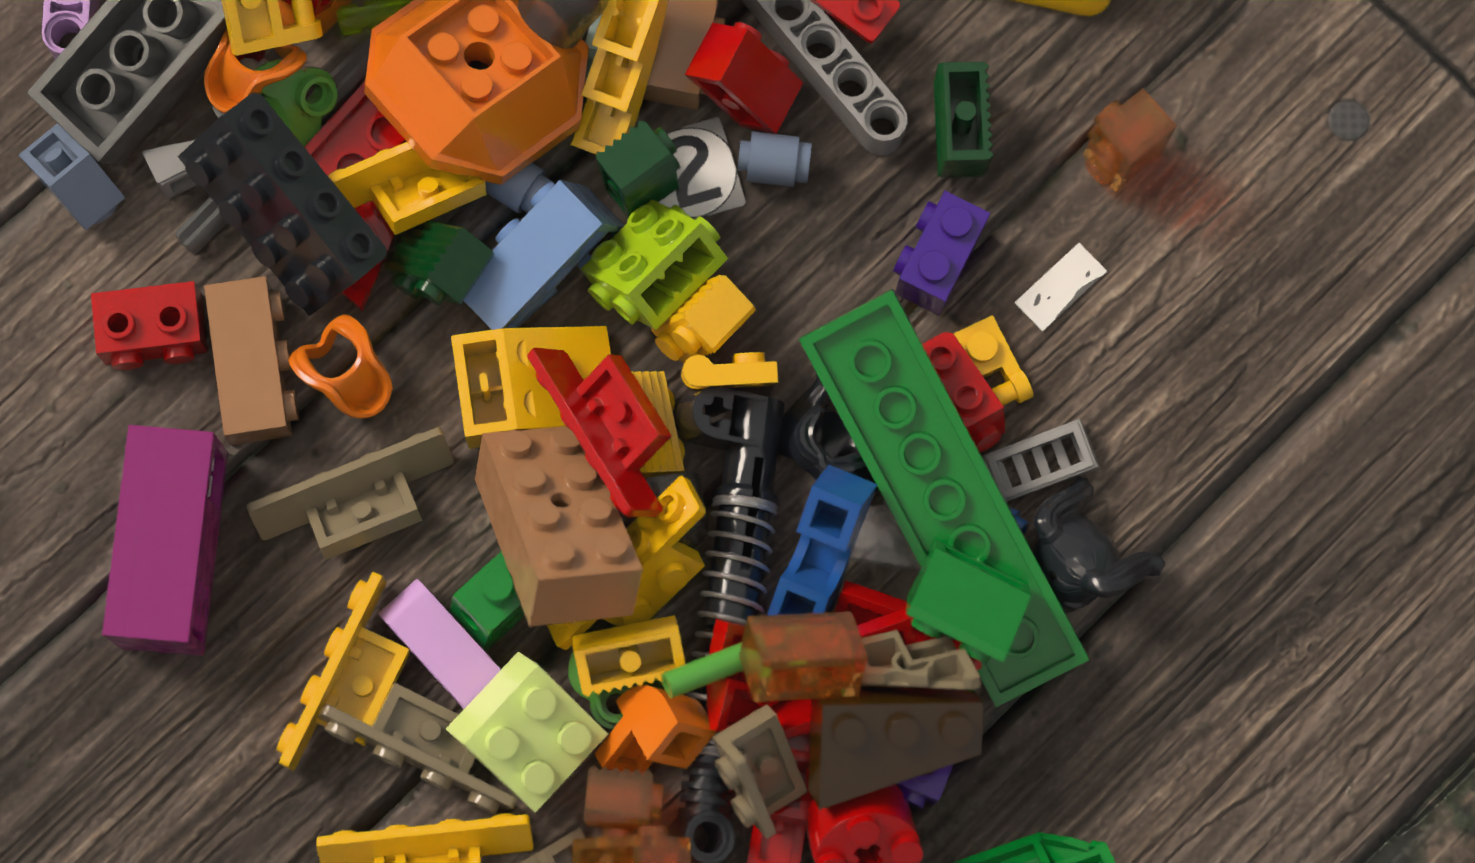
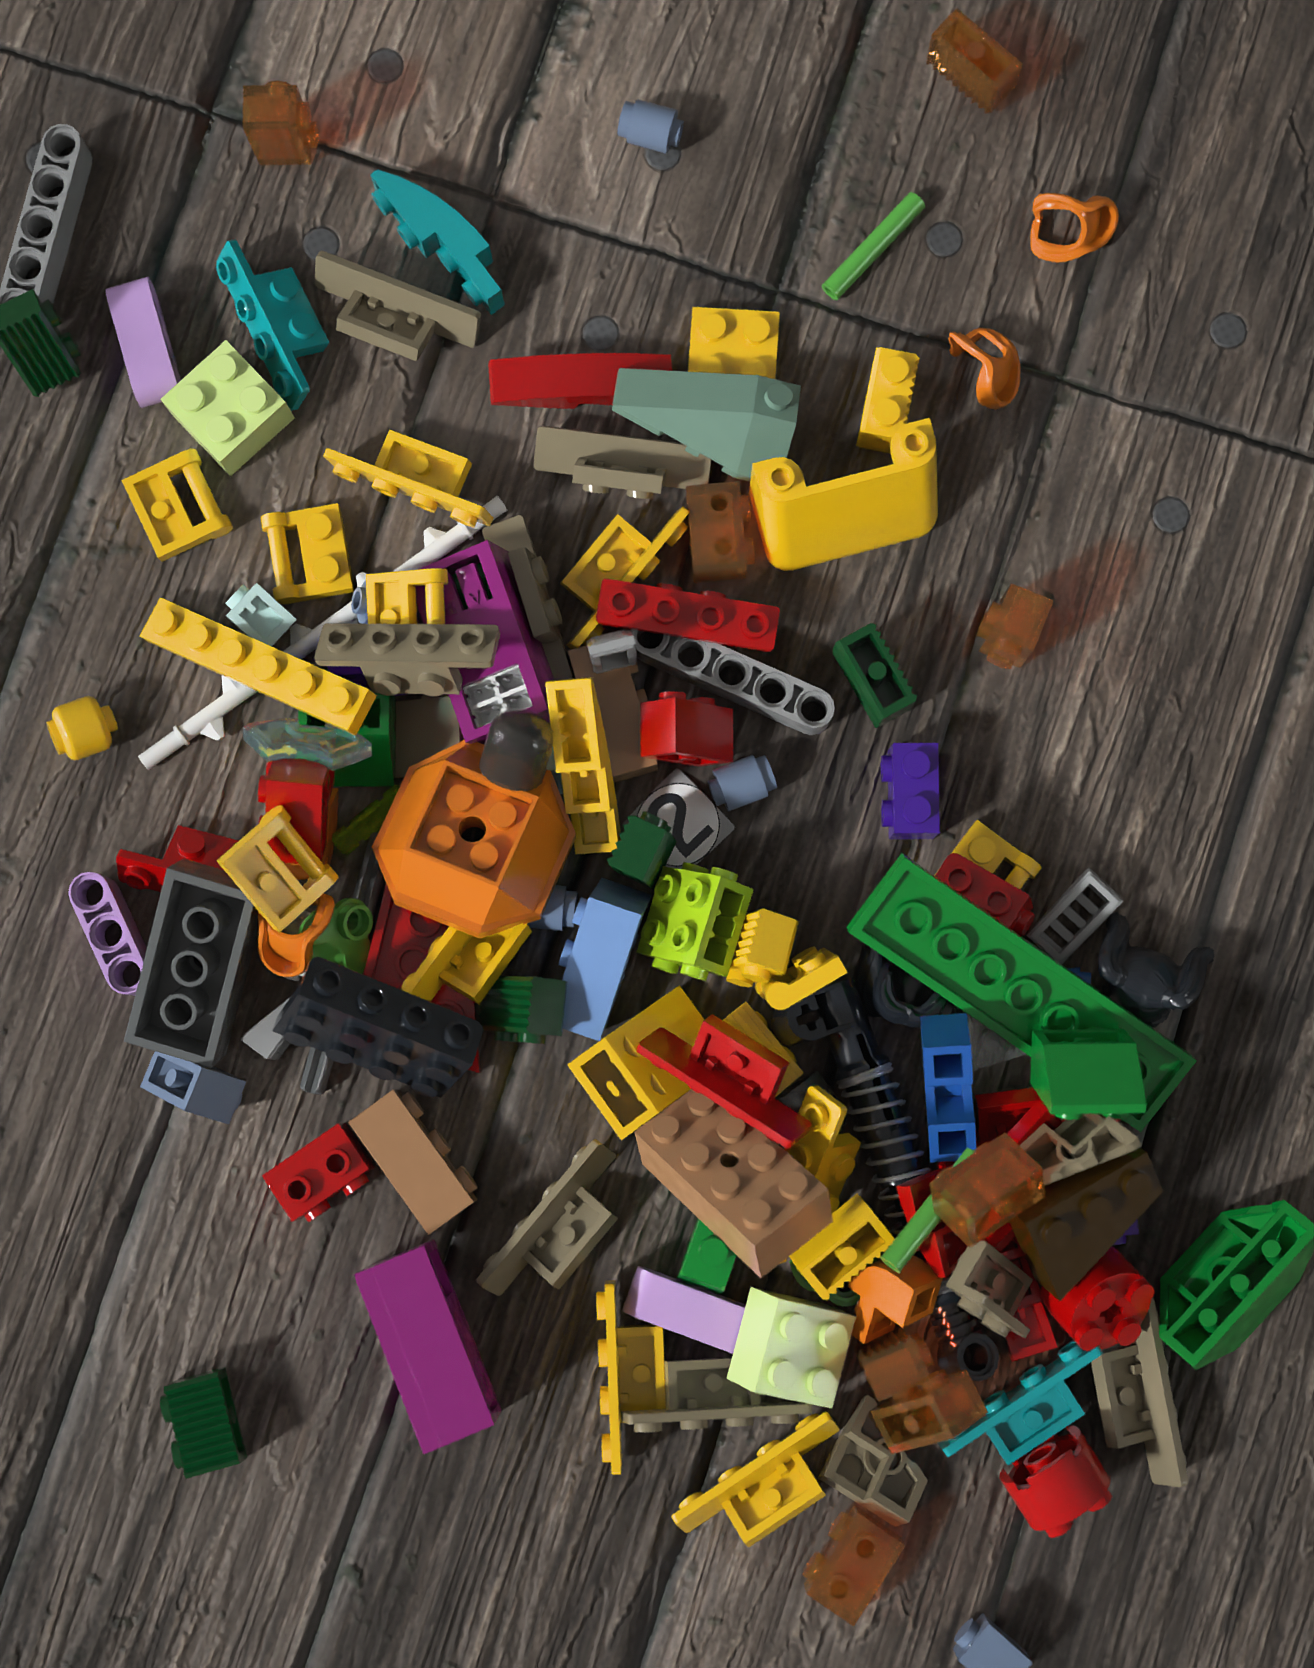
camera: 15 degrees left, 5 degrees up
(360, 390) = (517, 1136): orange piece -> none
(1060, 286) = (1015, 766): white sticker -> none

